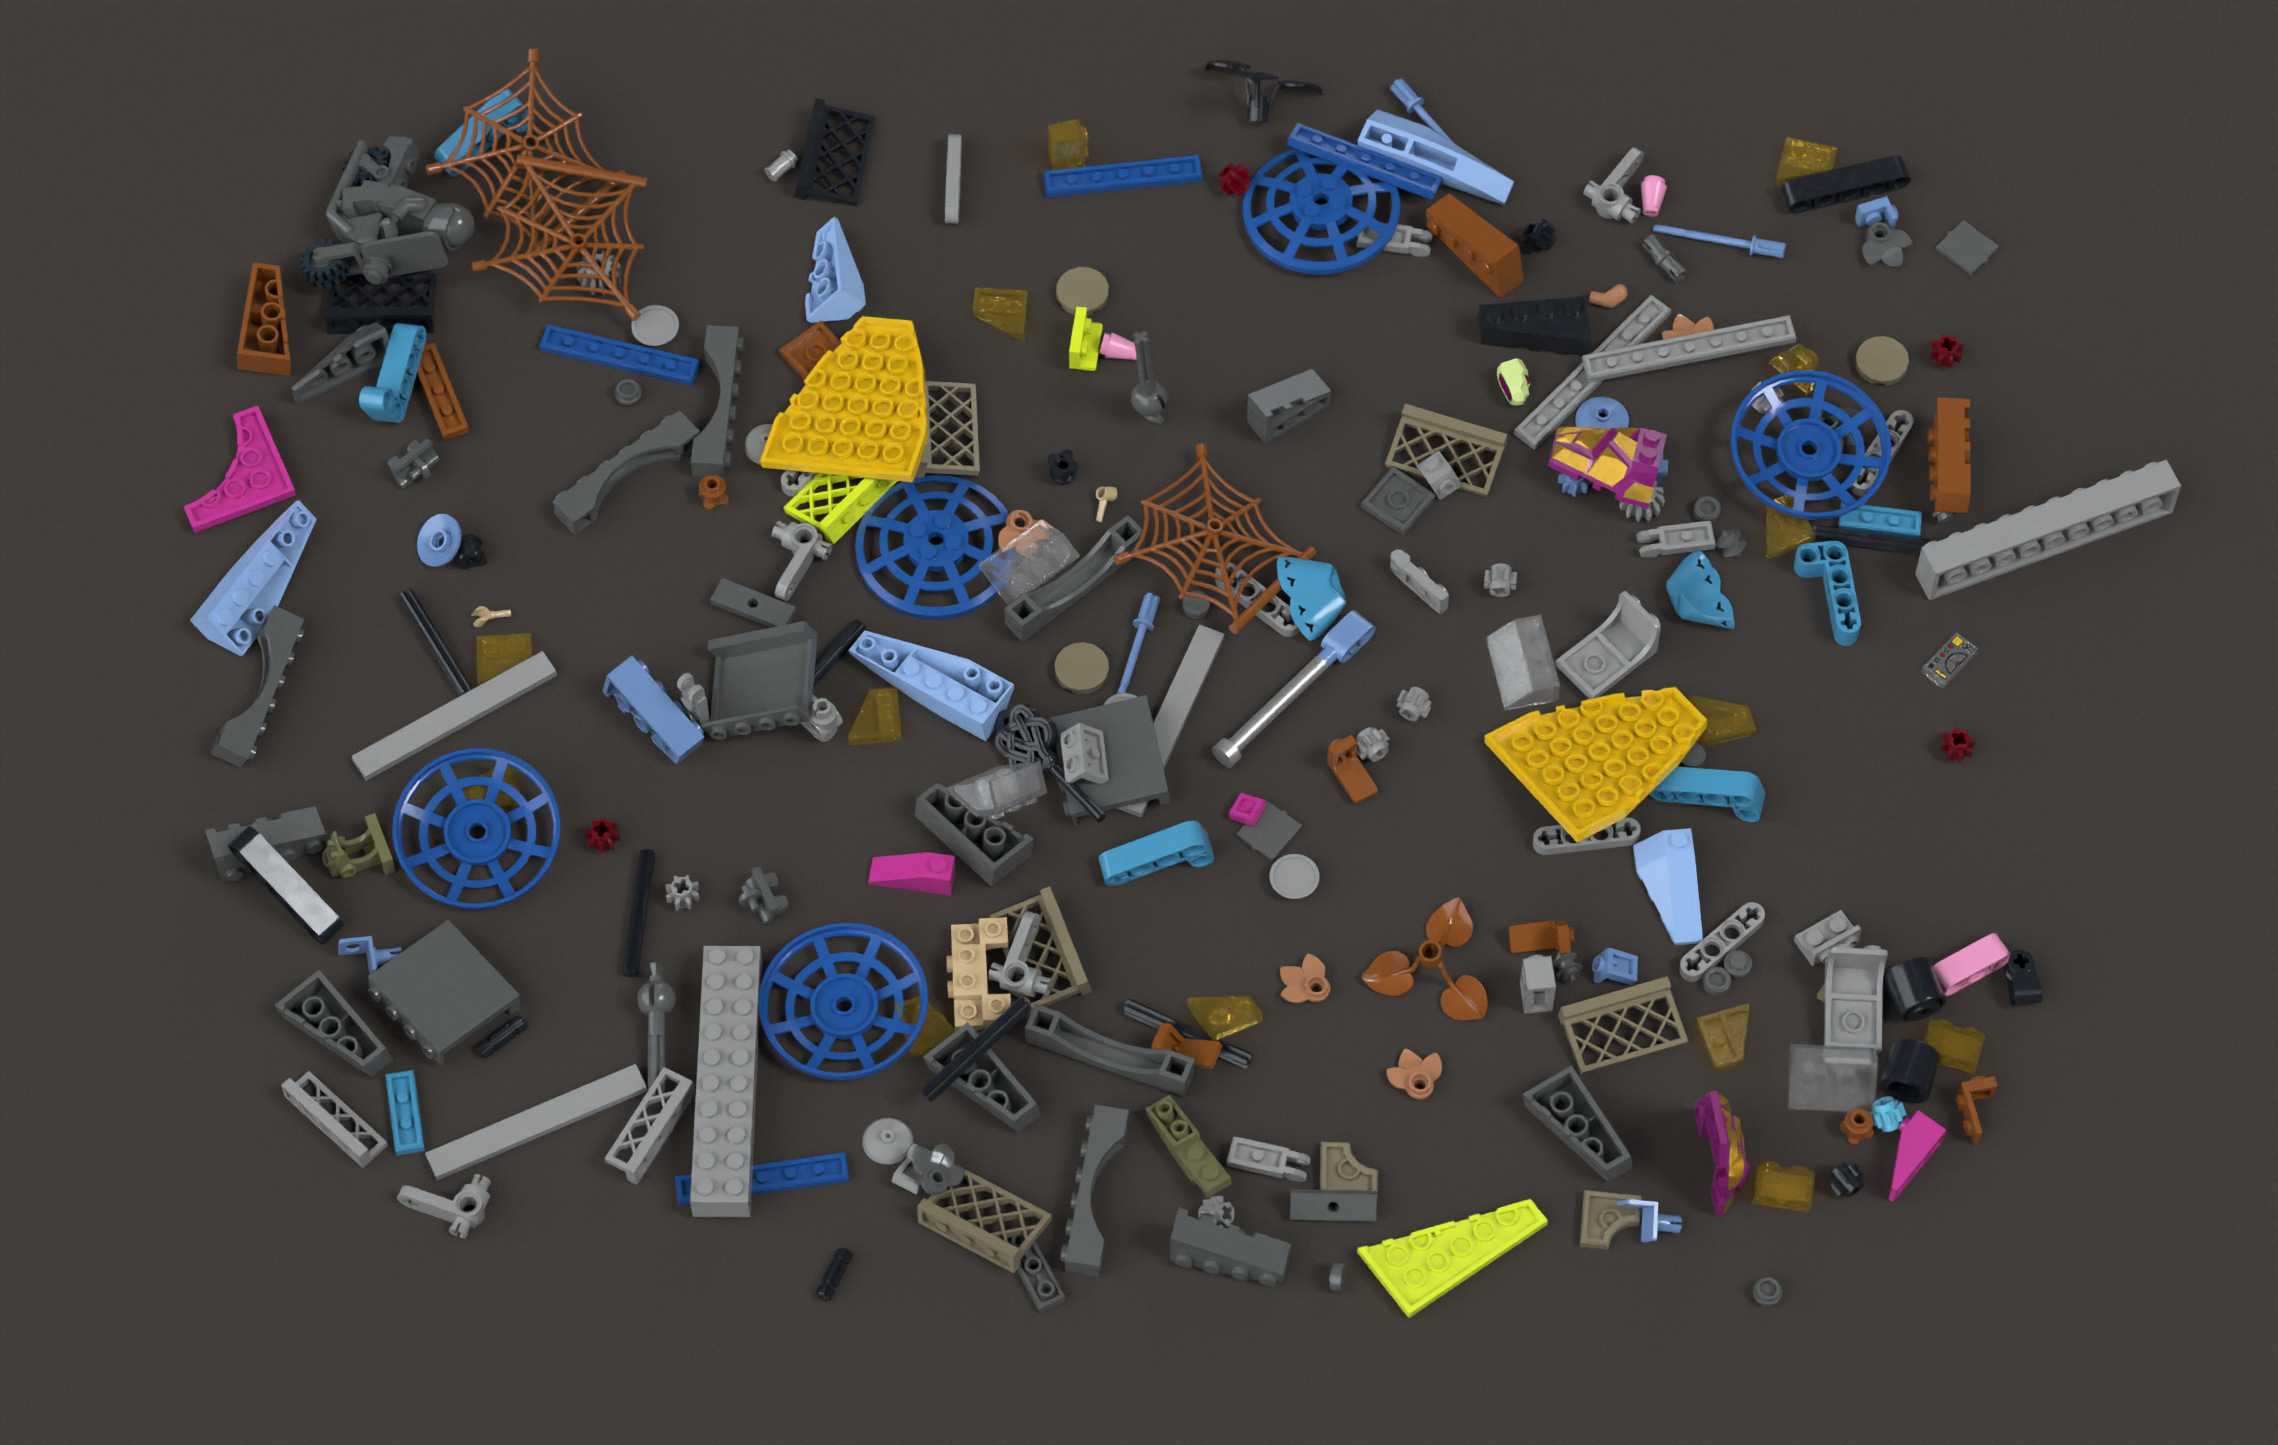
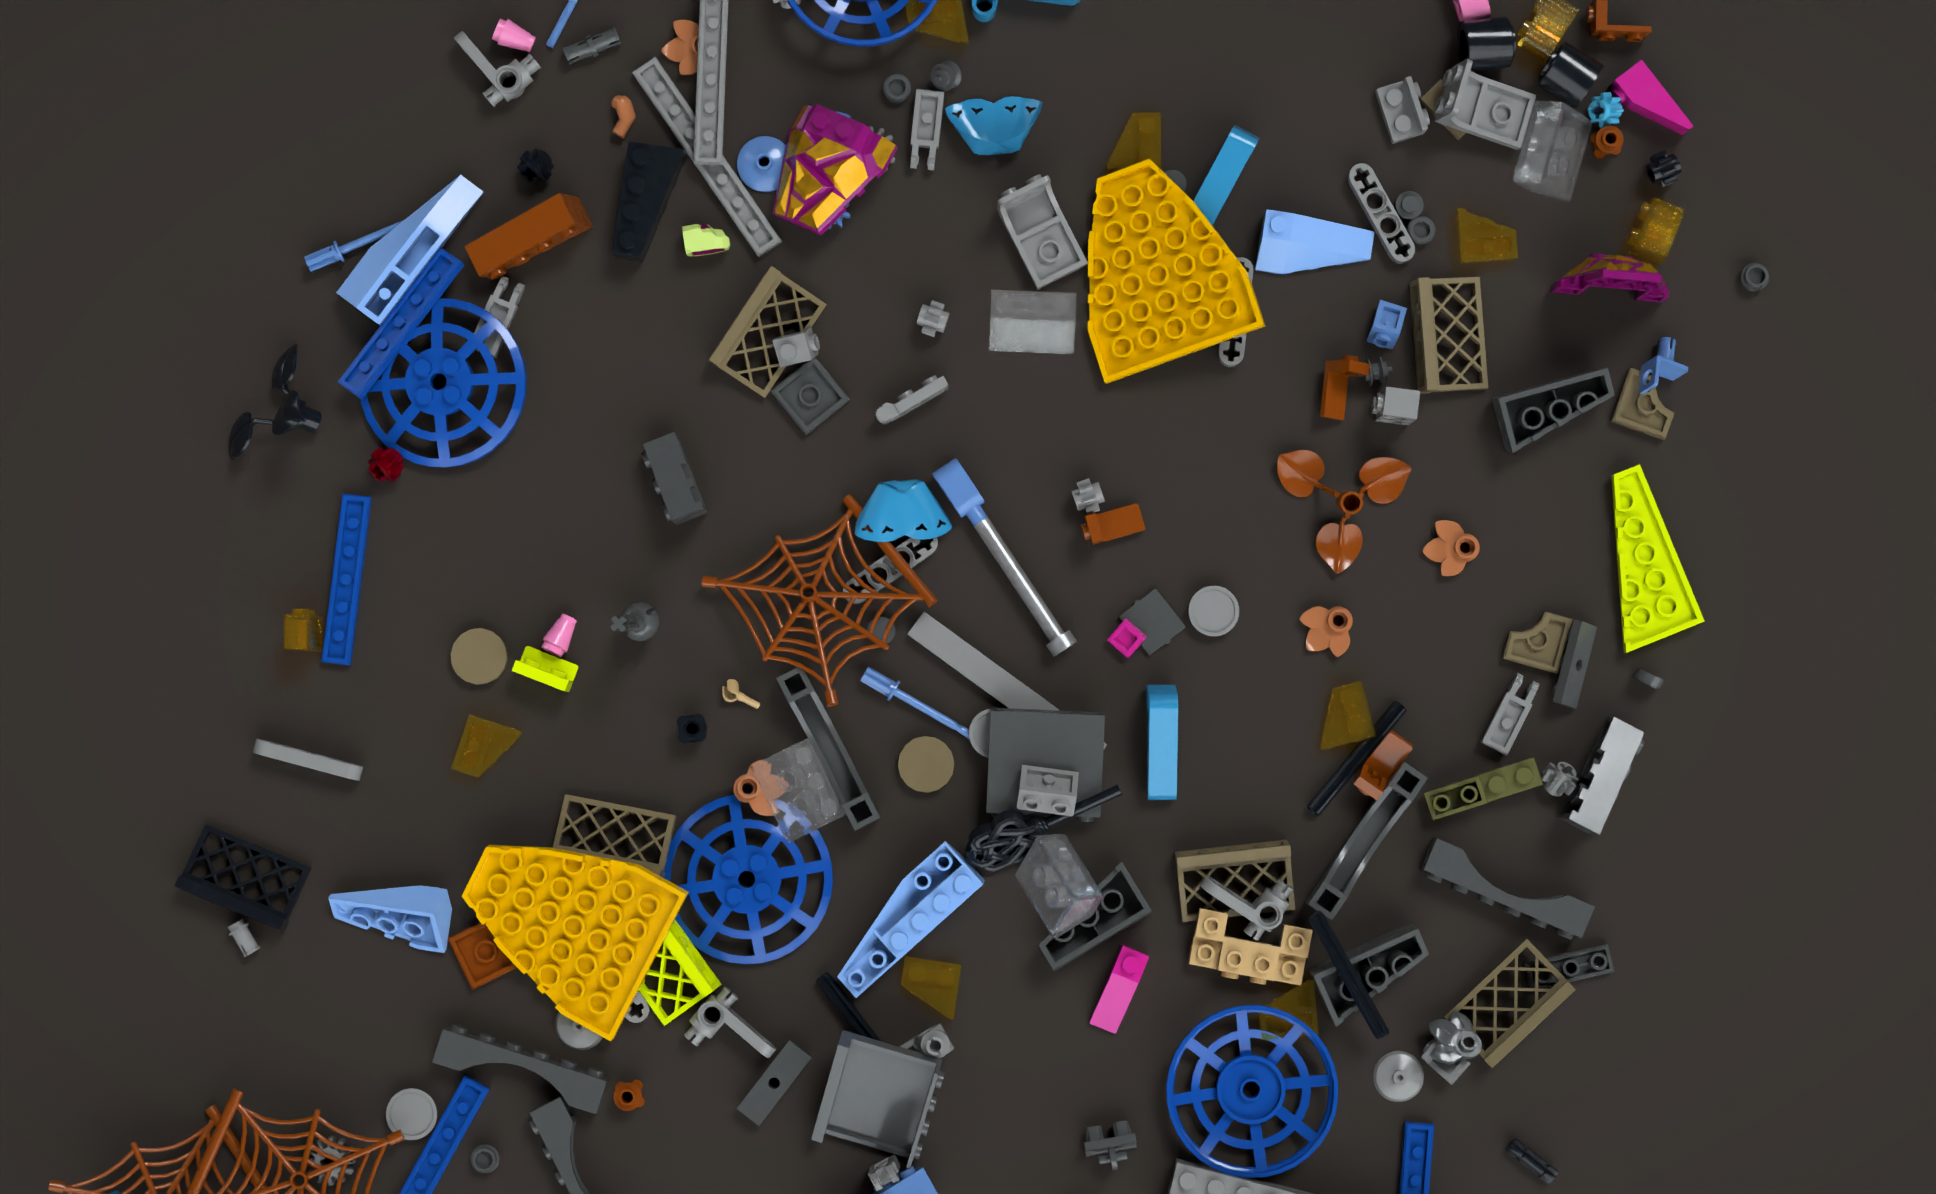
camera: 80 degrees left, 25 degrees up
(1414, 704) = (1052, 442): light grey gear -> none

